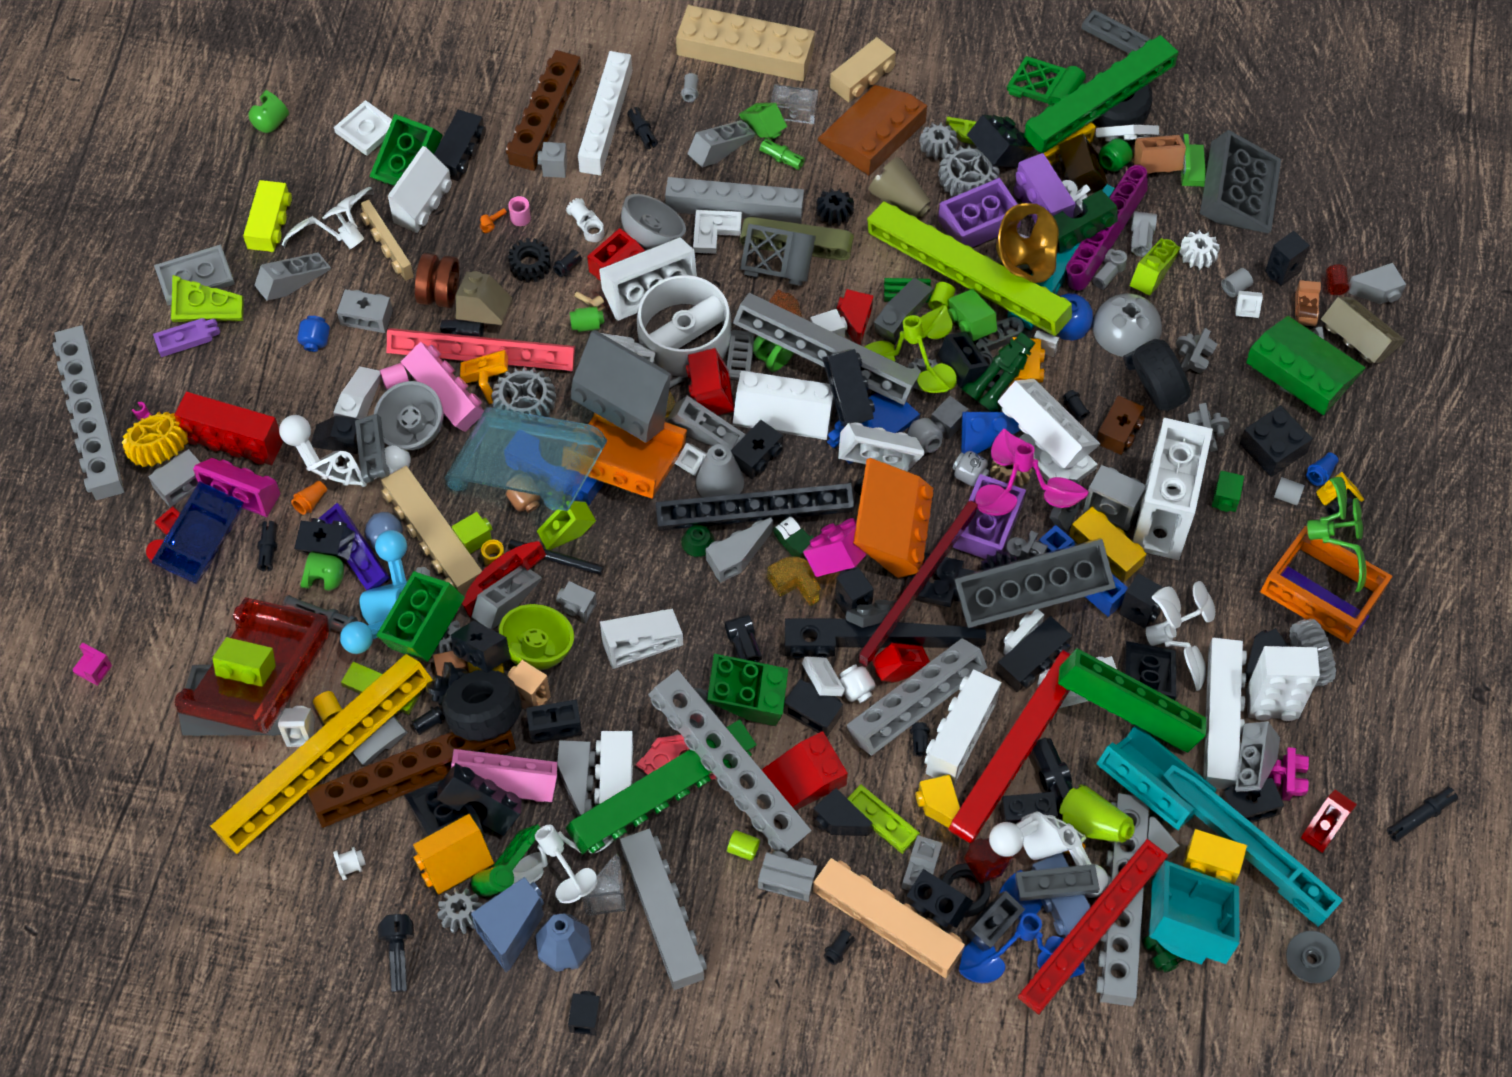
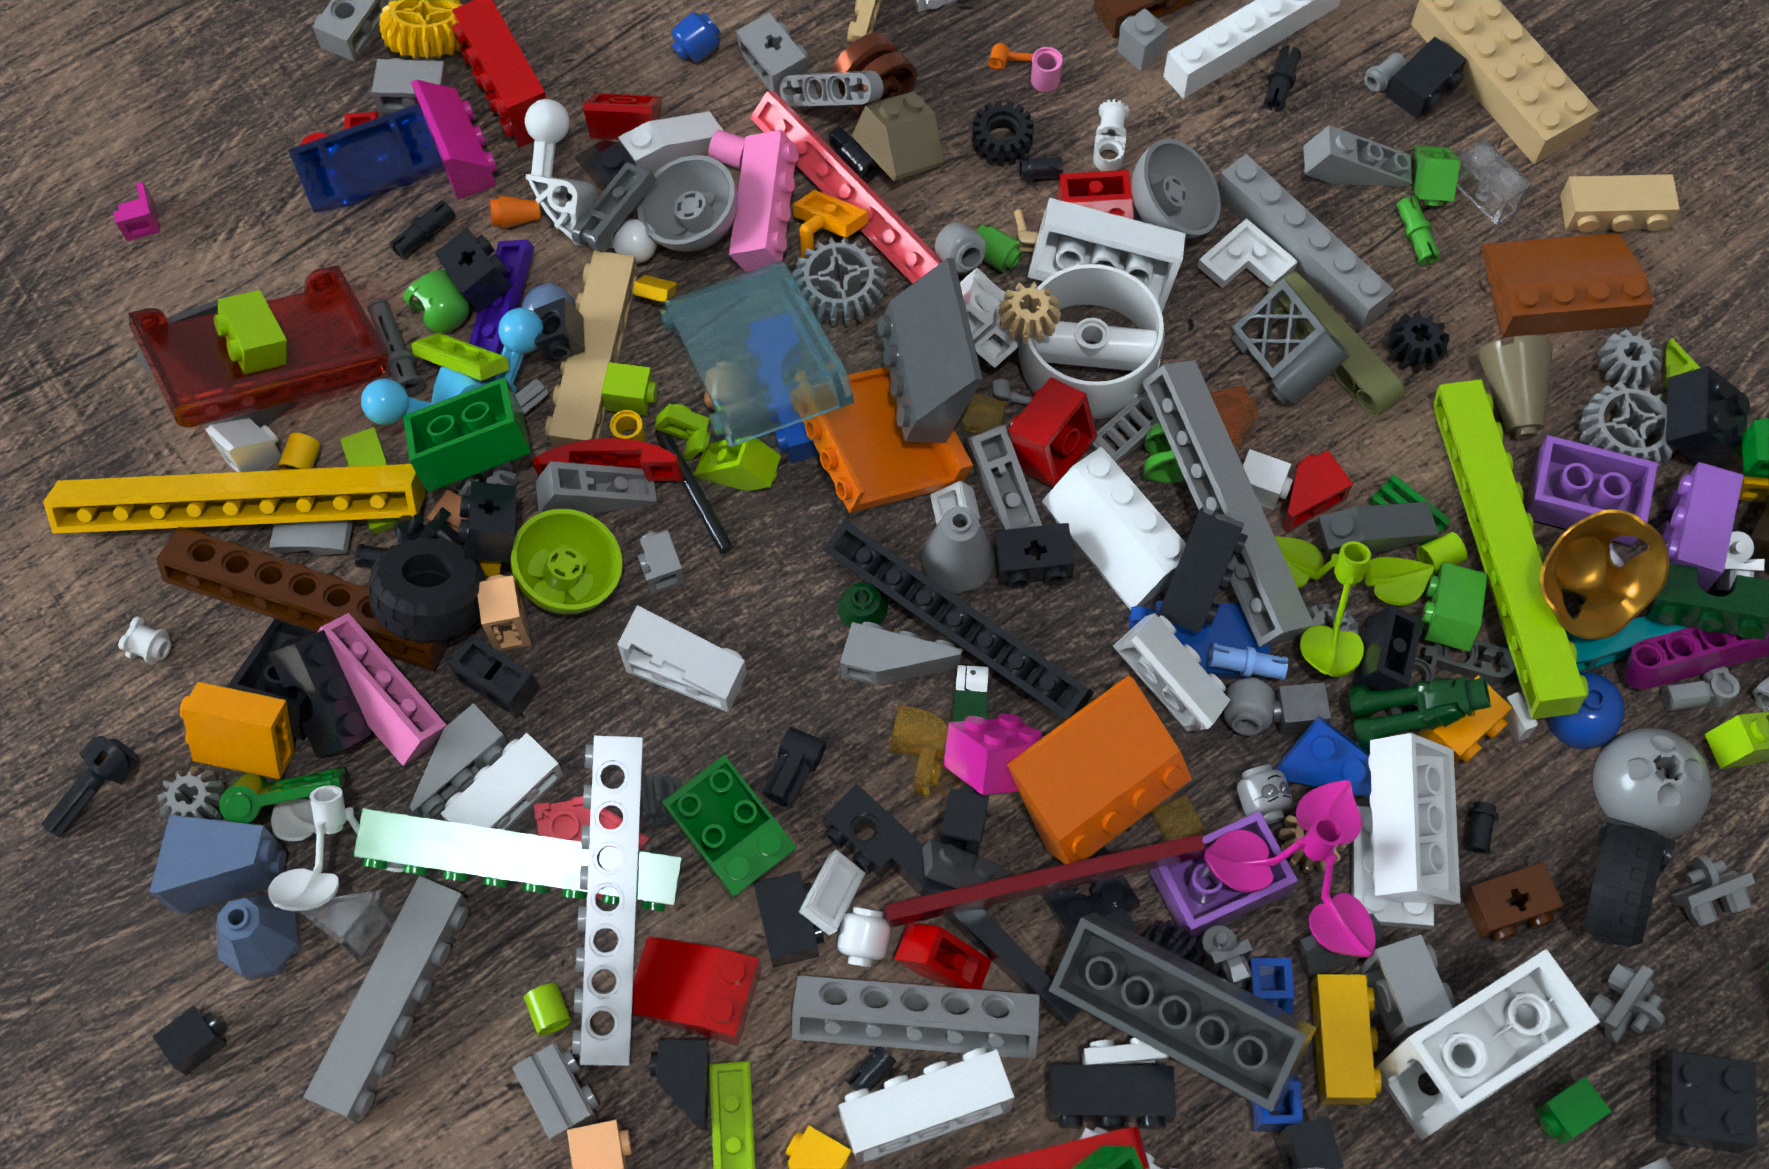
camera: 45 degrees right, 5 degrees up
(316, 401) = (616, 114): none -> red slope
(367, 586) = (460, 356): none -> lime tile
(405, 523) = (561, 330): none -> black brick
(423, 302) = (830, 88): none -> light grey beam
(430, 475) = (654, 288): none -> yellow tile
(520, 527) = (687, 425): none -> lime bracket
(572, 331) = (962, 244): none -> light grey head
(650, 330) = (1029, 313): none -> tan gear
(713, 75) = (1427, 78): none -> black brick
(905, 415) = (1247, 661): none -> light blue pin
(942, 514) = (1177, 819): none -> clear yellow tile

